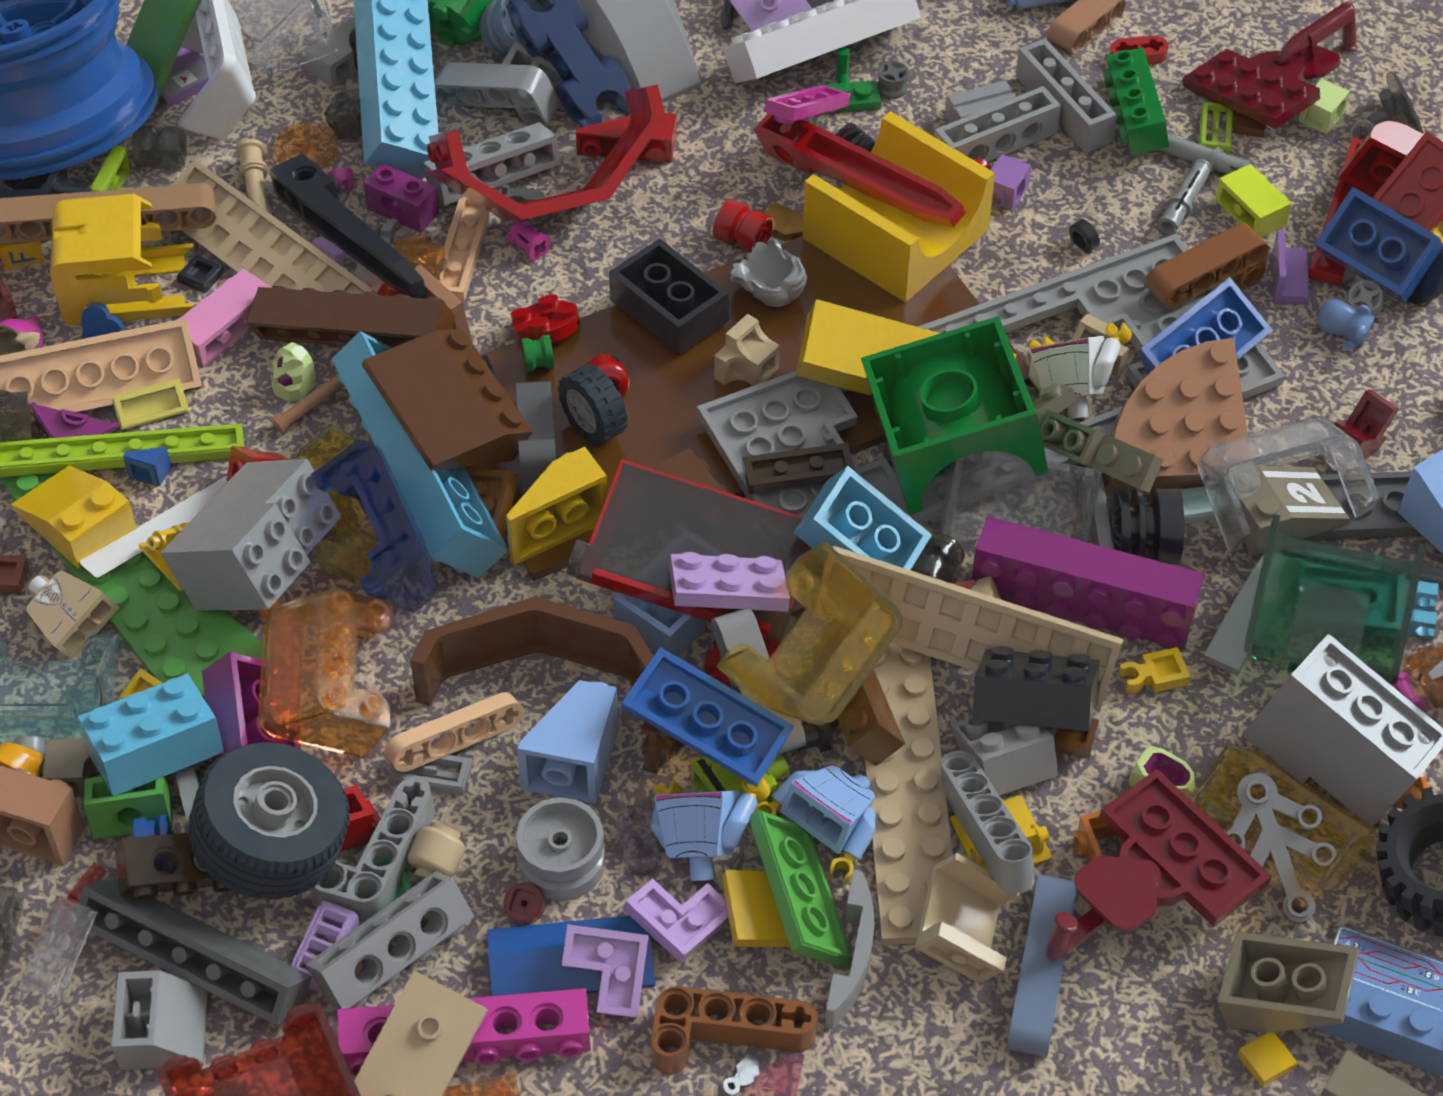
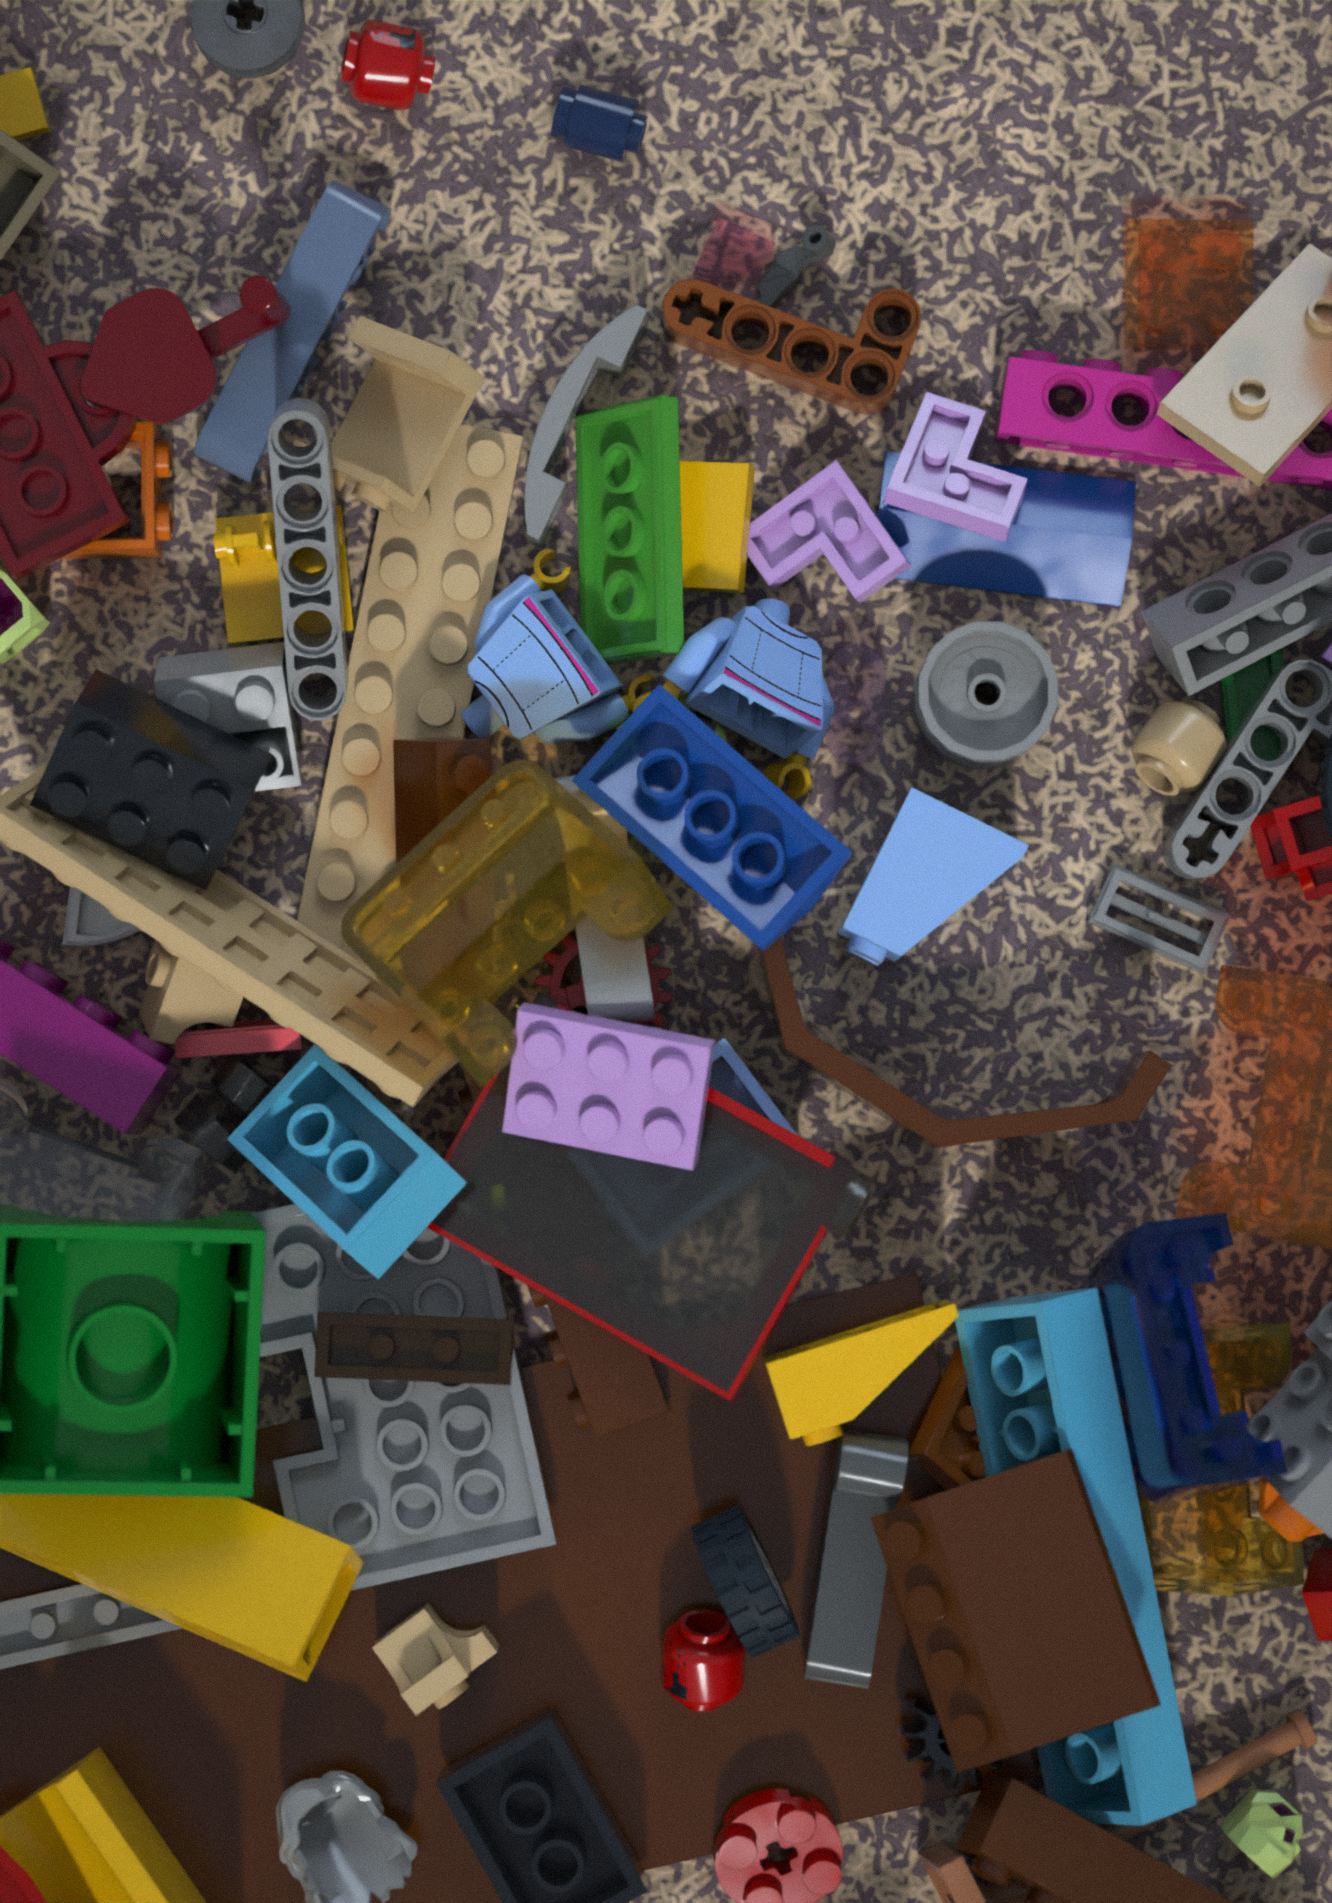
camera: 165 degrees left, 35 degrees up
(414, 746) = (1111, 962): light nougat beam -> none
(524, 903) = (1059, 628): dark red tile -> none
(537, 353) = (812, 1759): green wheel -> none

